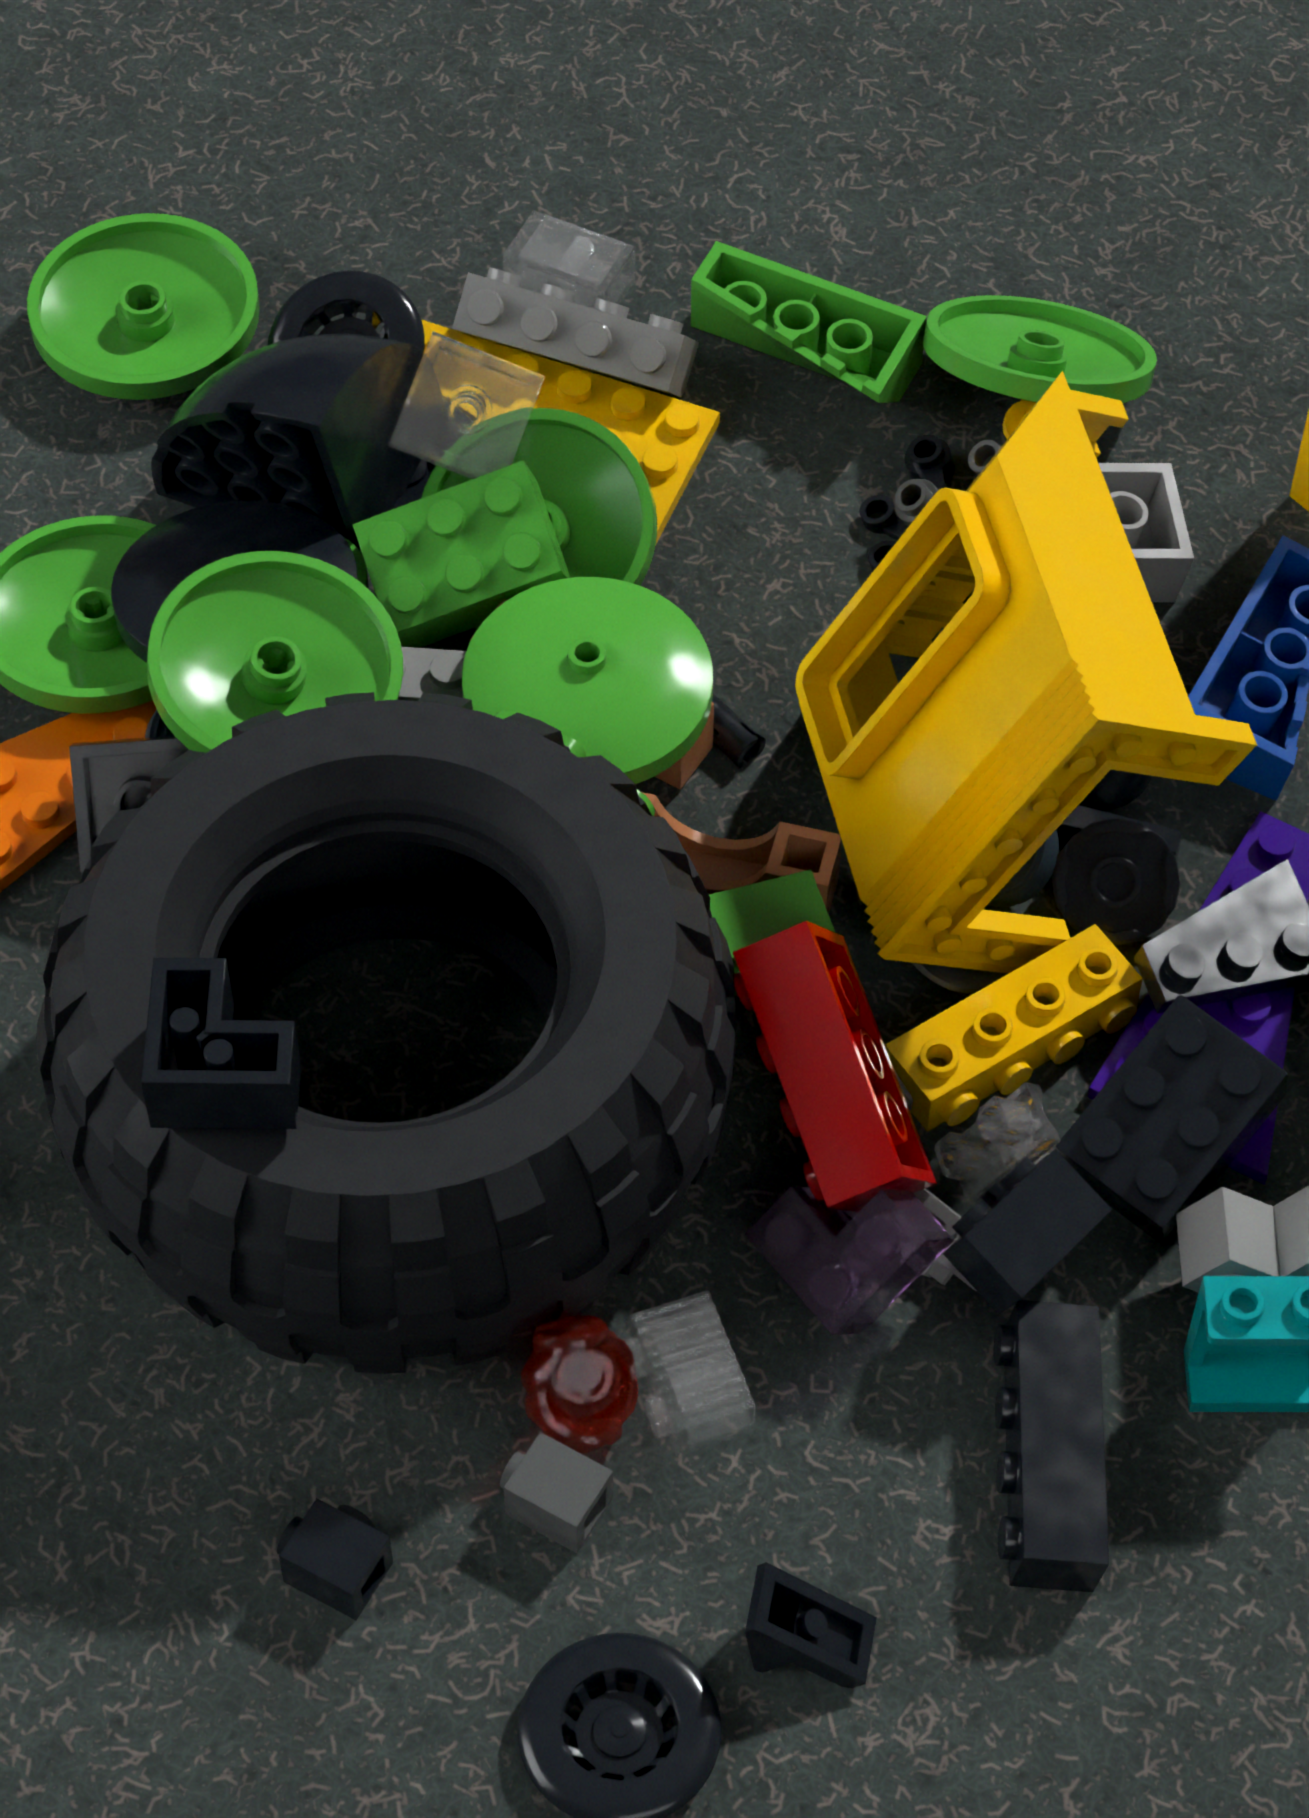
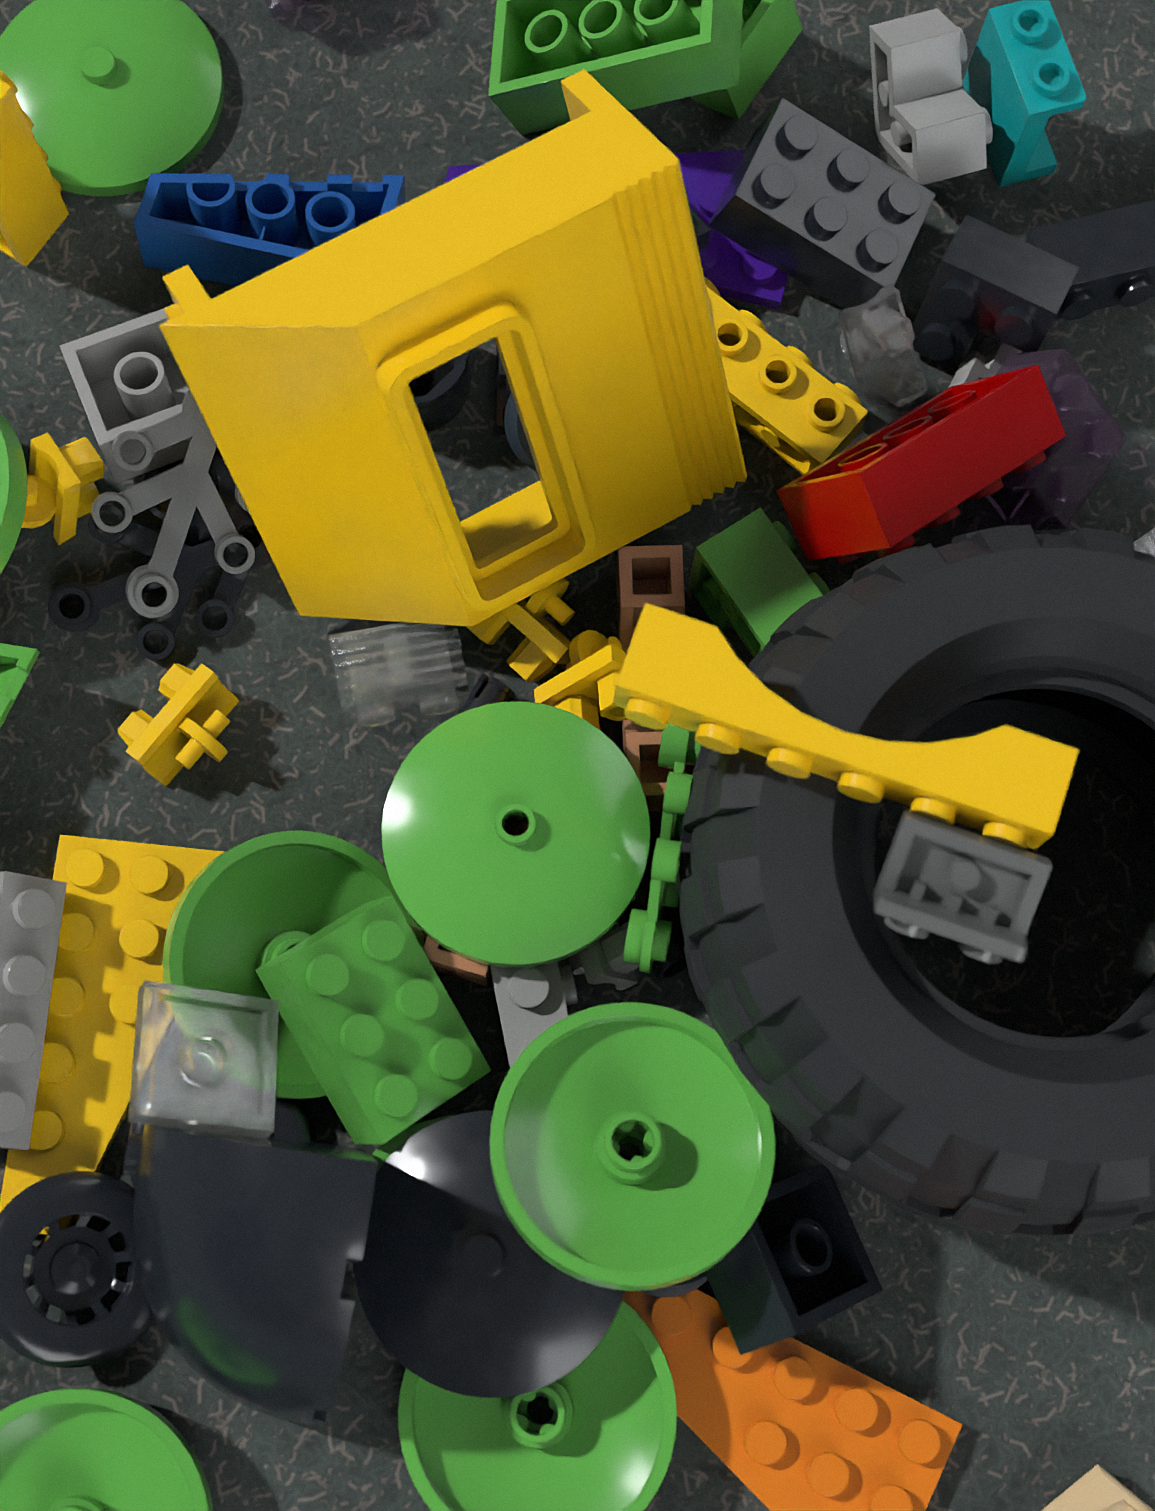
camera: 110 degrees left, 20 degrees up
(364, 813) = (960, 888): none -> dark grey bracket
(620, 681) = (992, 781): none -> yellow arch
(719, 799) = (588, 680): none -> yellow hips
(776, 655) = (398, 671): none -> clear brick
(785, 506) = (183, 726): none -> yellow hips
(788, 788) = (543, 643): none -> yellow hips

